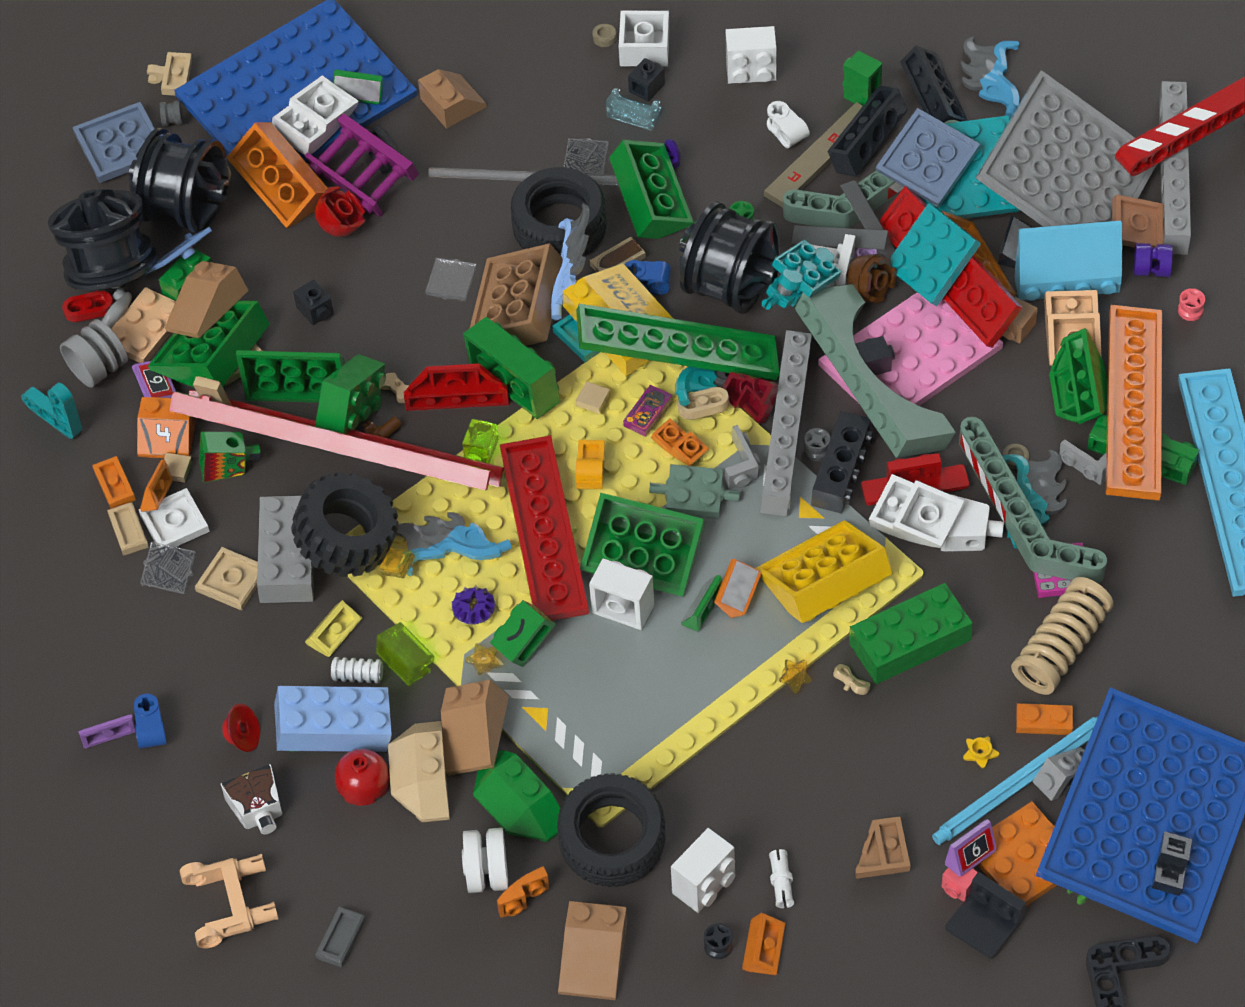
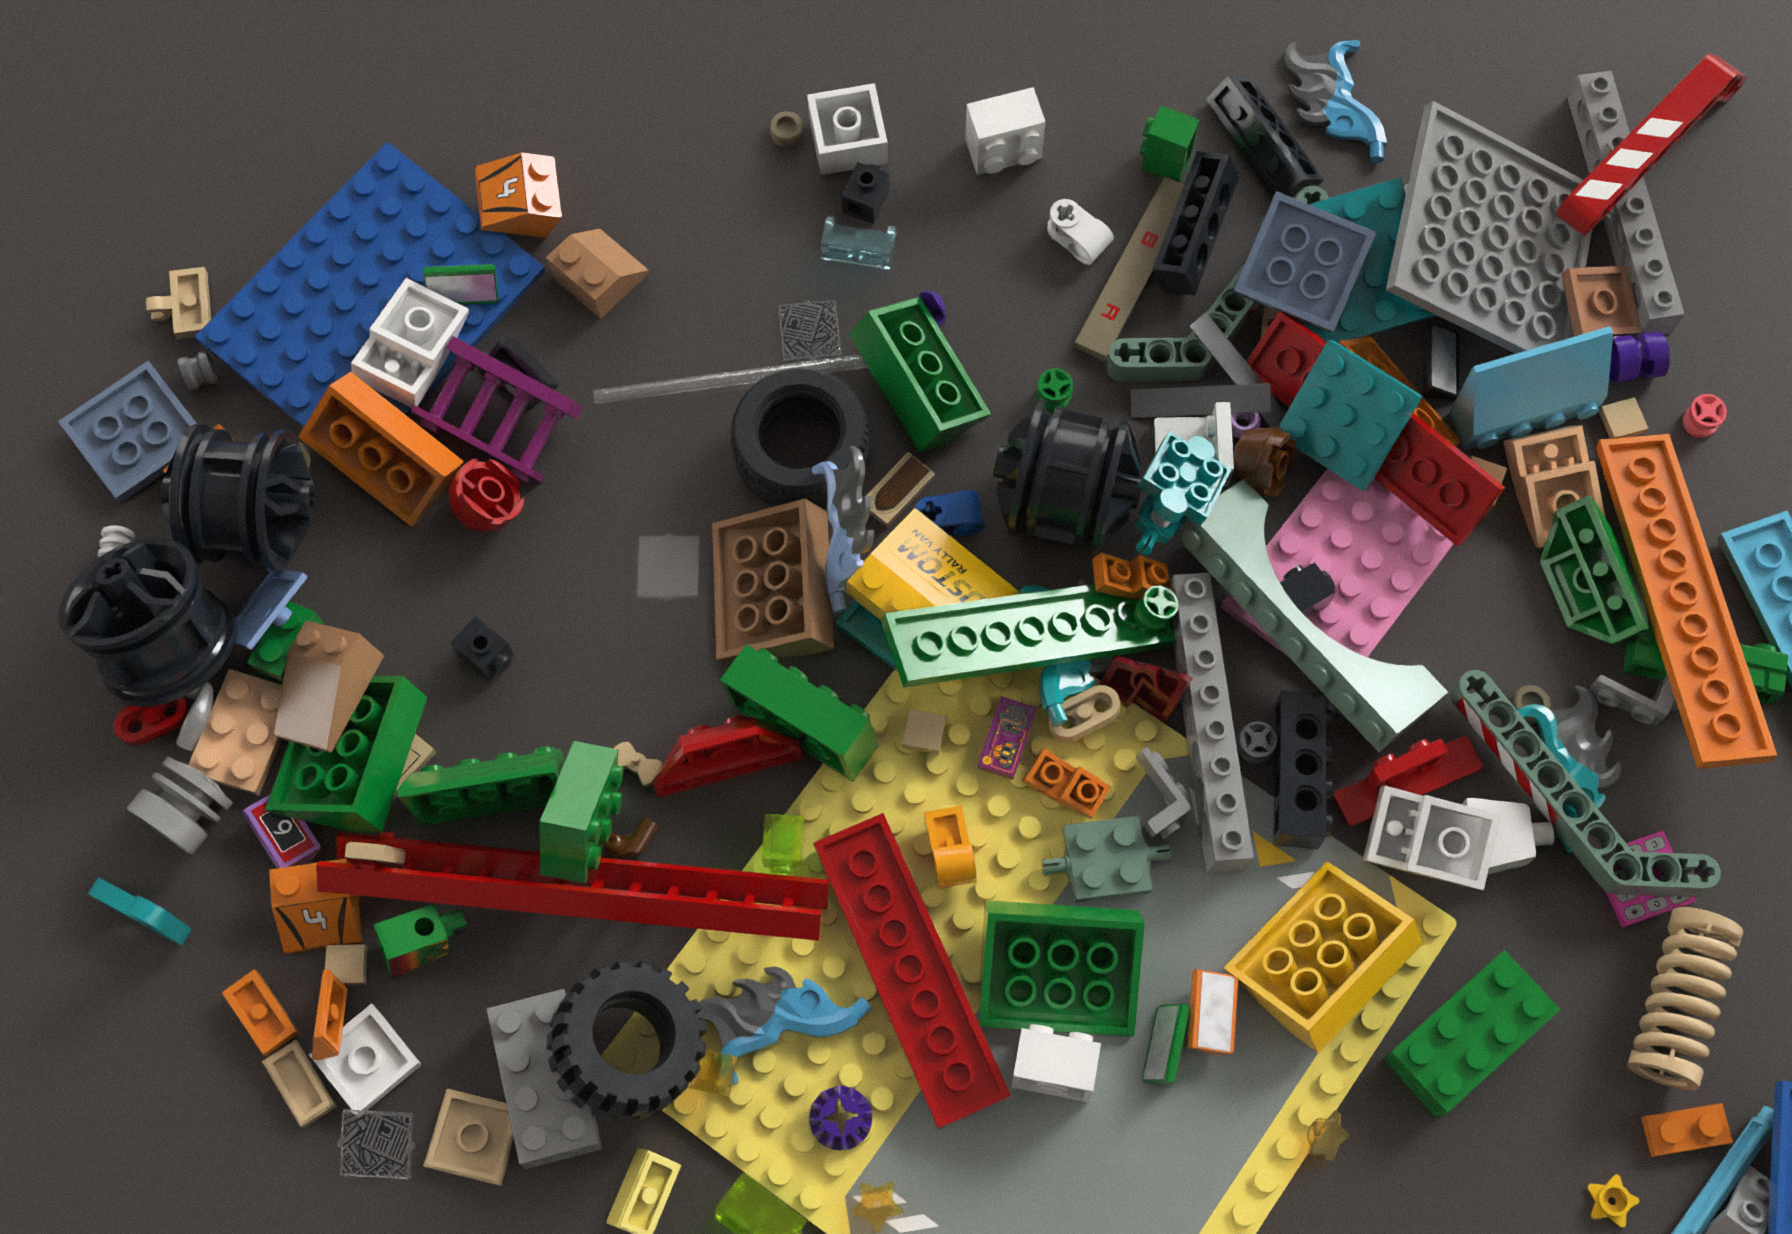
camera: 15 degrees left, 15 degrees up
(410, 42) = (518, 195): none -> orange slope
(522, 633) = (927, 1160): green brick -> none
(763, 332) = (1128, 578): none -> orange slope
(769, 348) = (1164, 604): none -> green wheel
(844, 674) = (1418, 1132): tan piece -> none
(1134, 296) = (1623, 419): none -> tan tile

